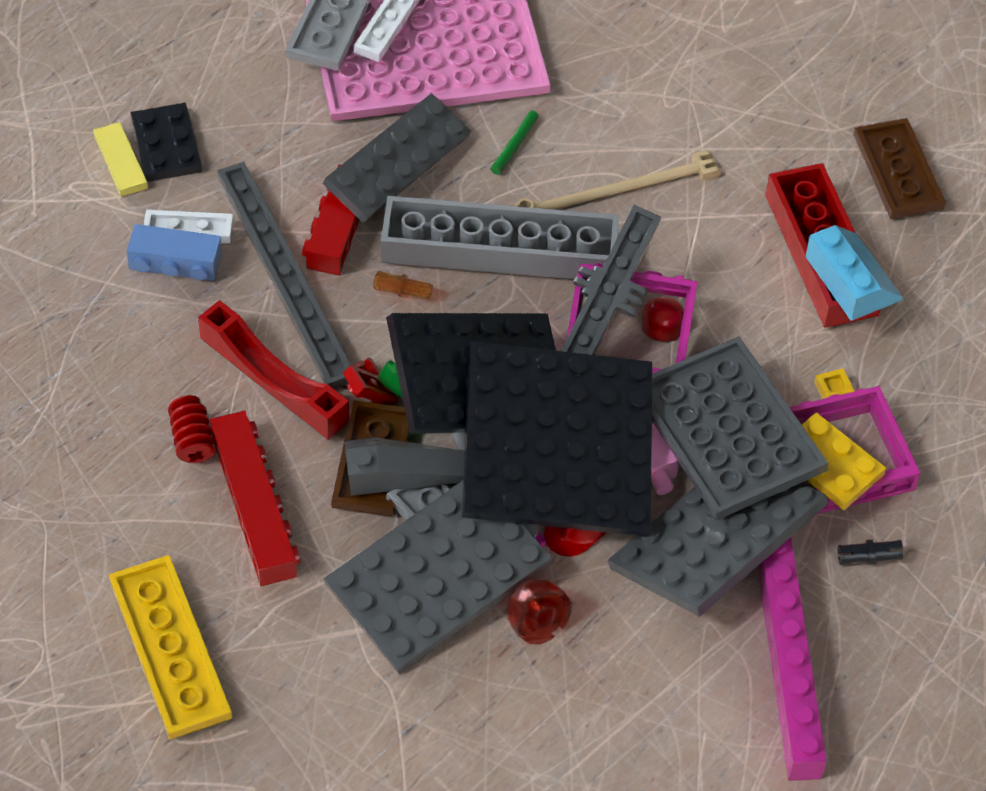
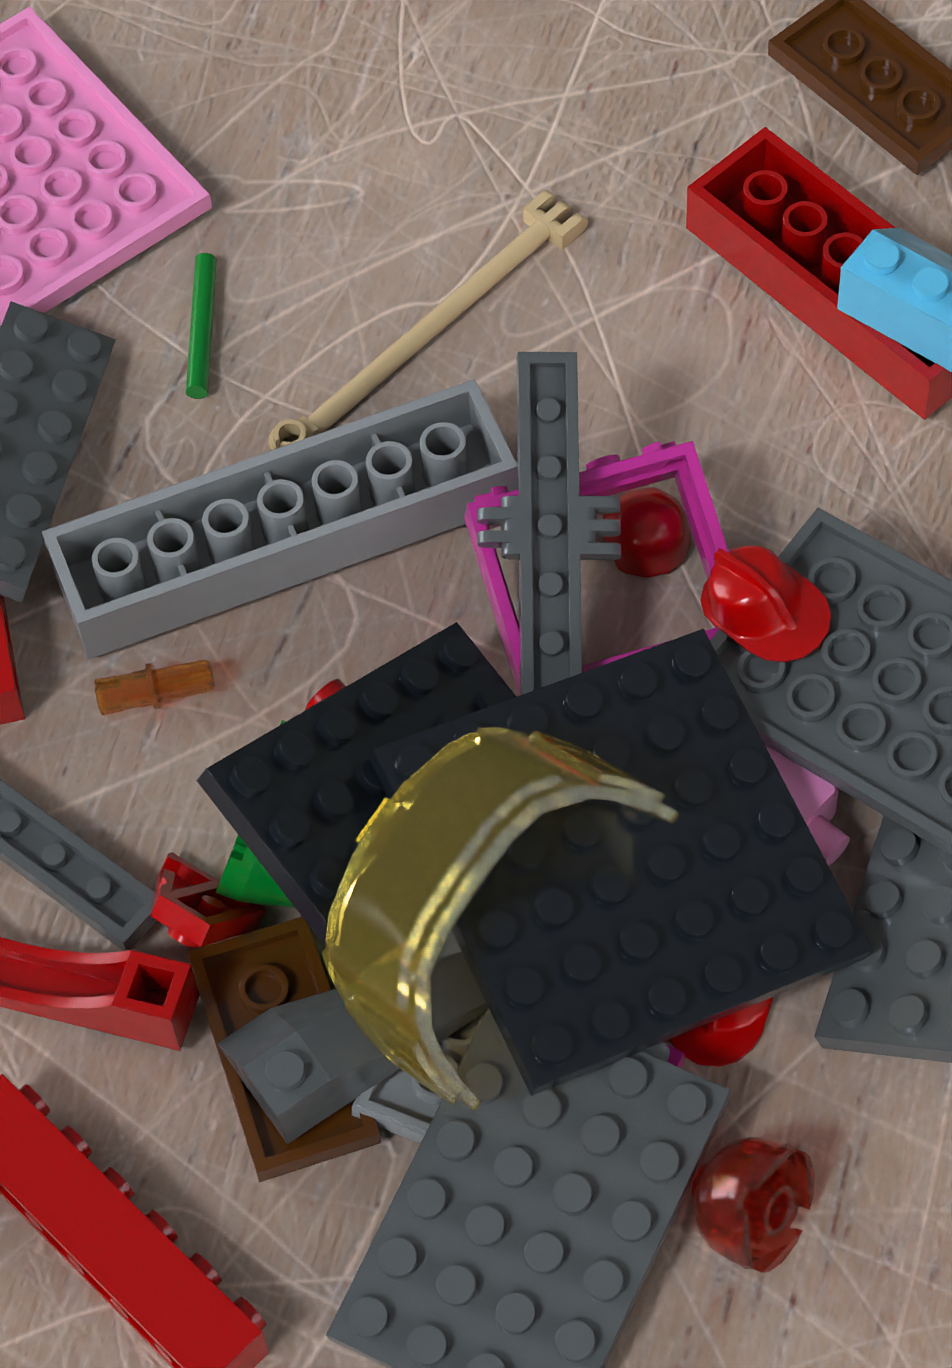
camera: 20 degrees left, 5 degrees up
(464, 390) = (425, 862): none -> clear yellow piece
(689, 365) = (765, 604): none -> red piece

